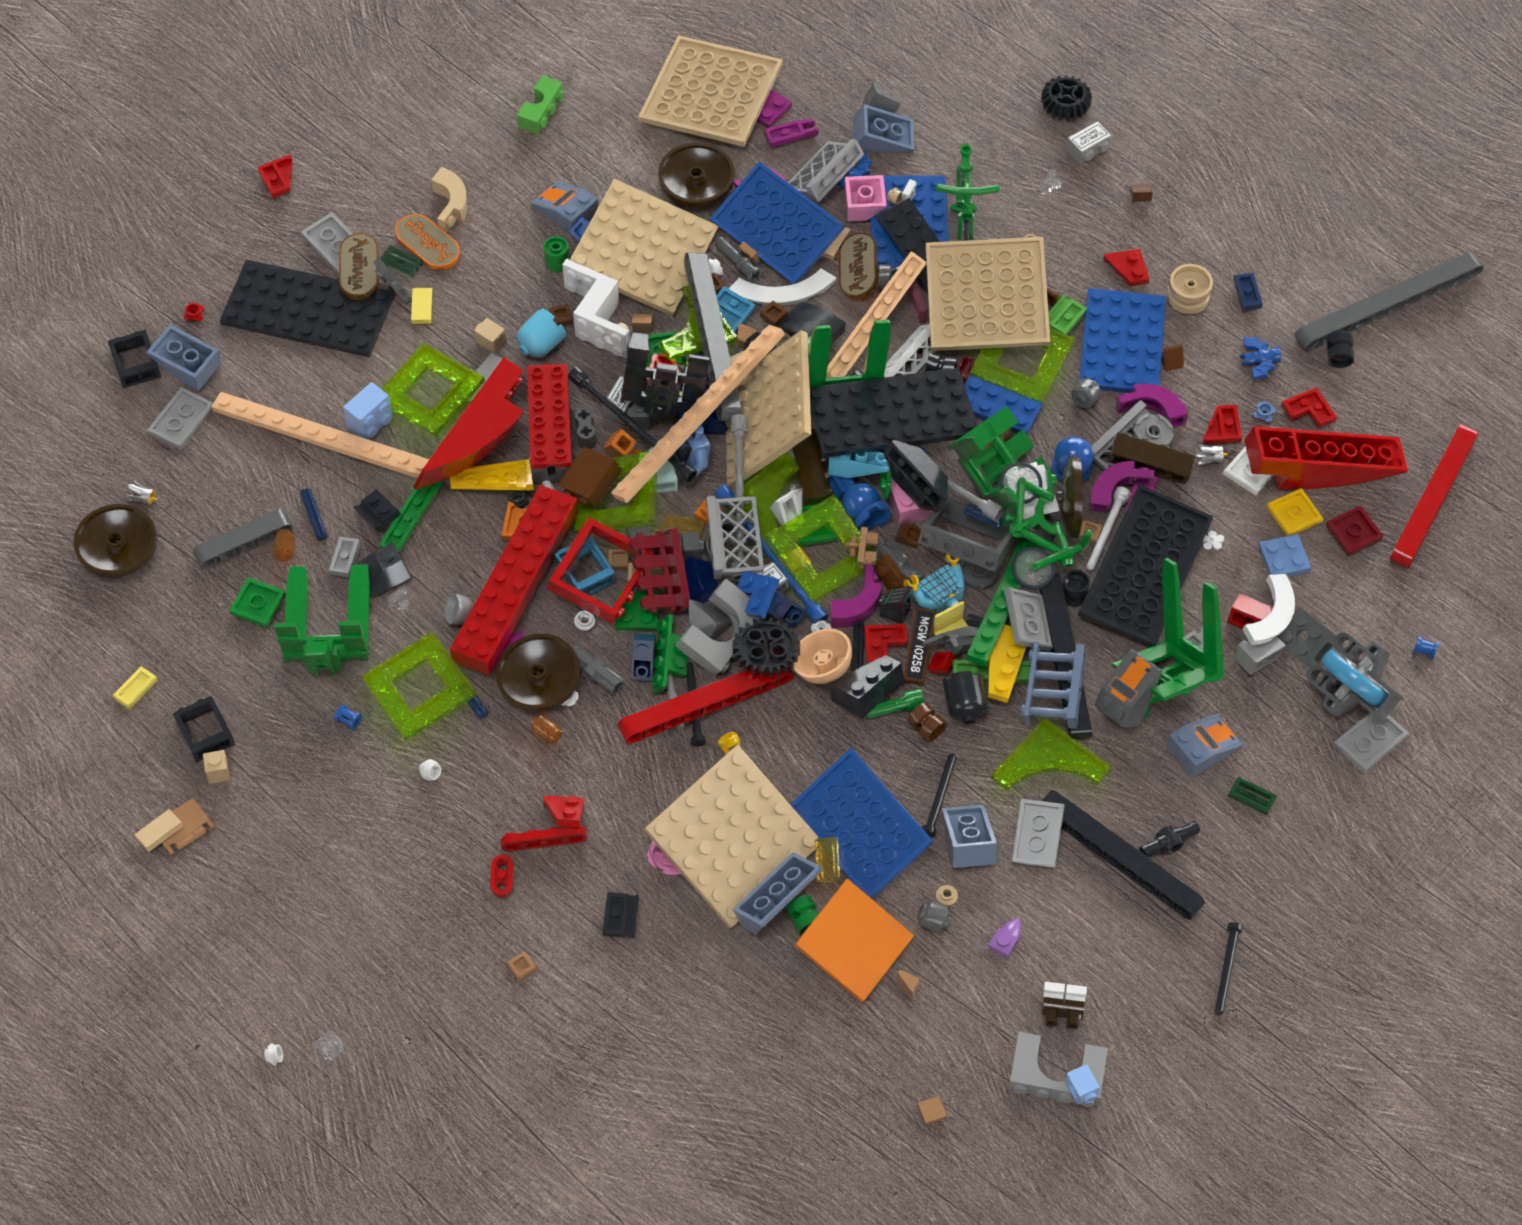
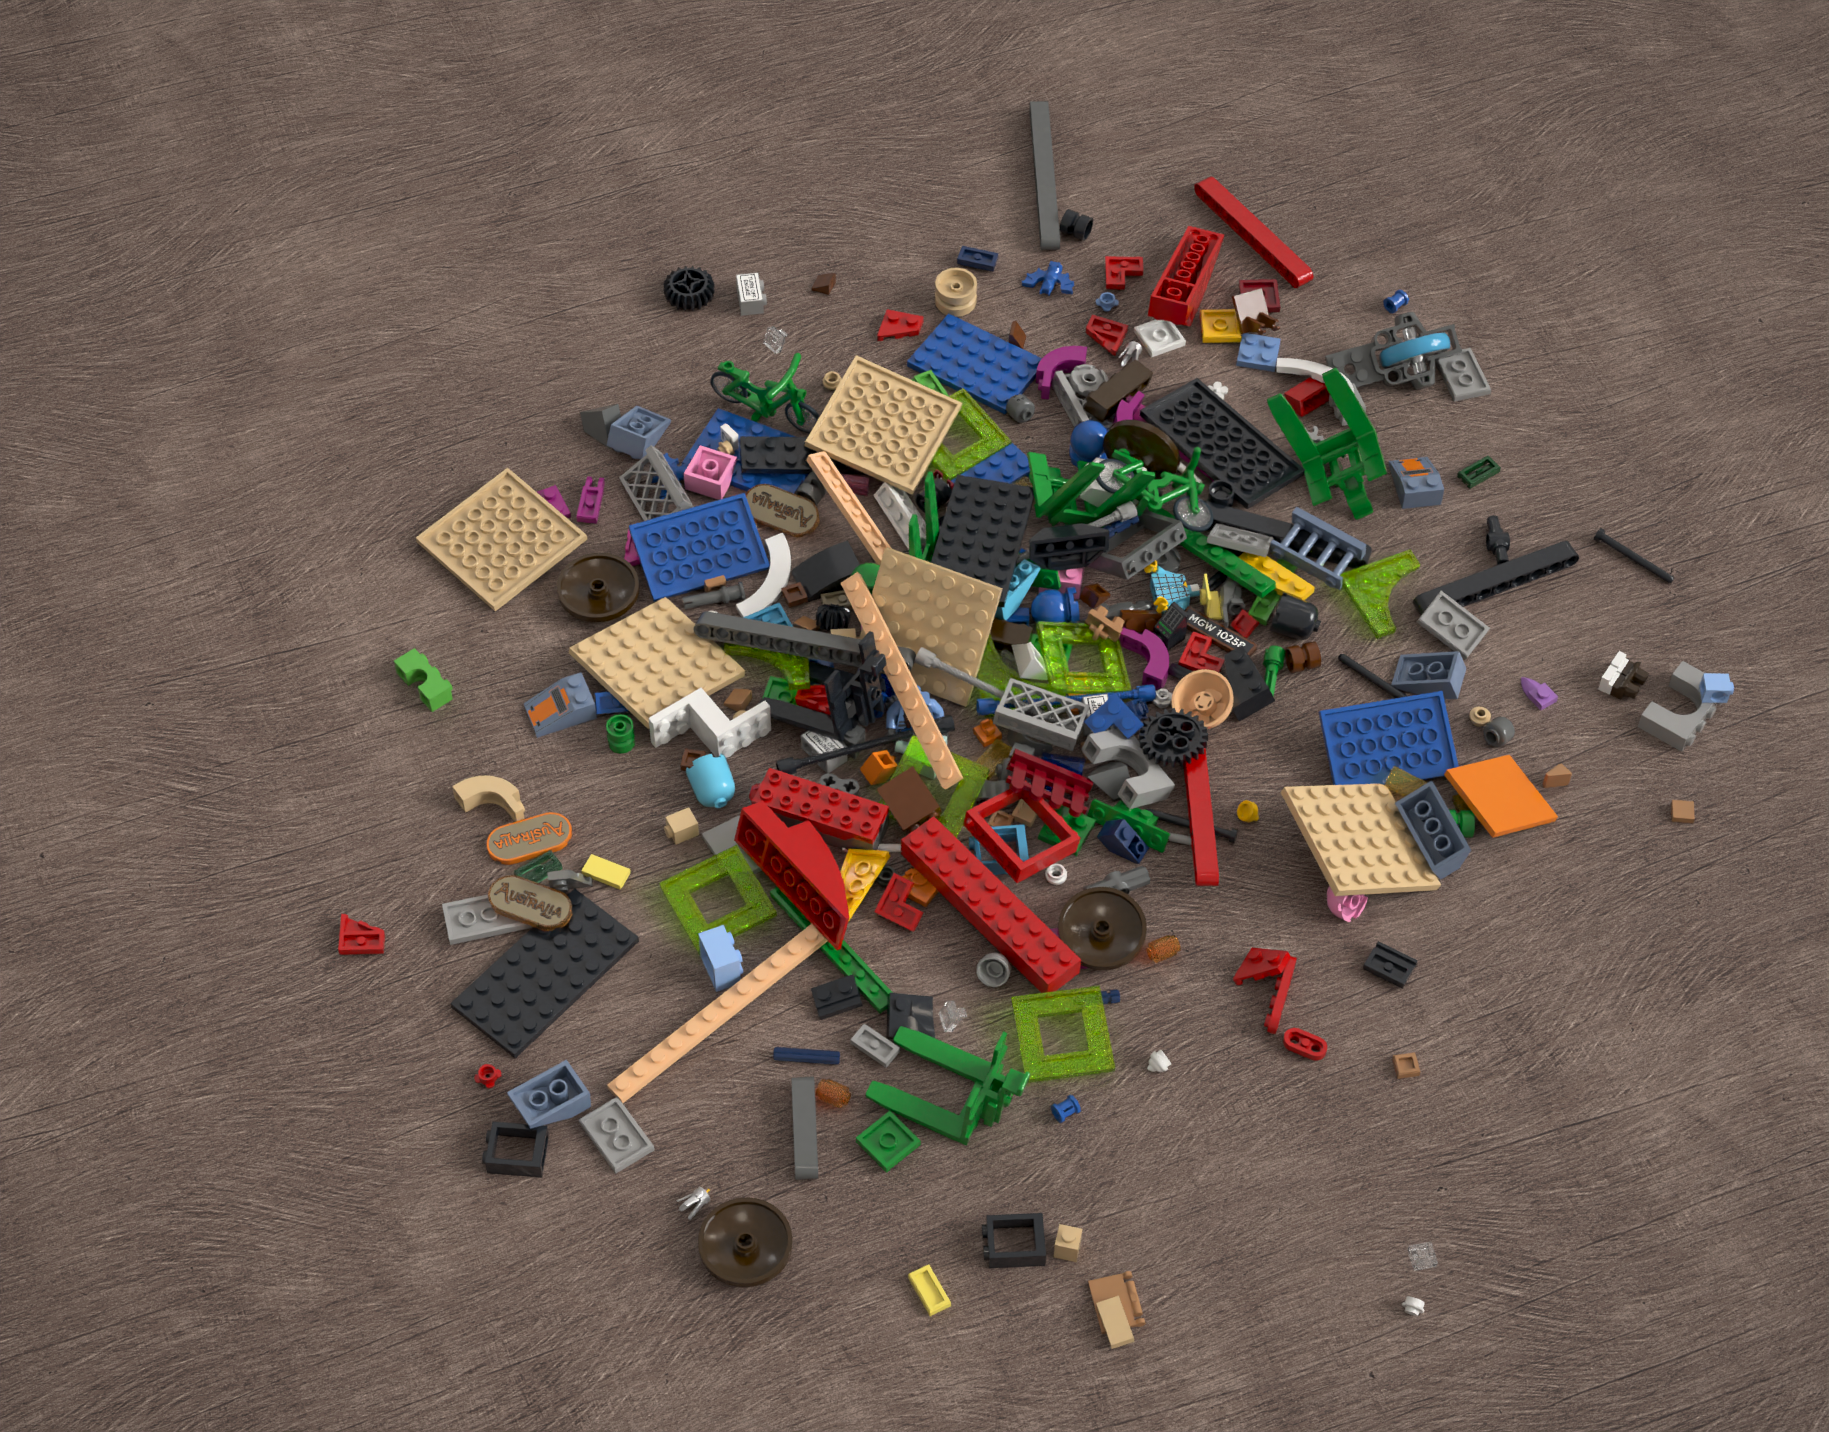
camera: 65 degrees left, 5 degrees down
(485, 515) = (893, 904): none -> red plate
(1129, 690) = (1352, 497): dark grey slope -> none
(1321, 528) = (1253, 312): none -> plate

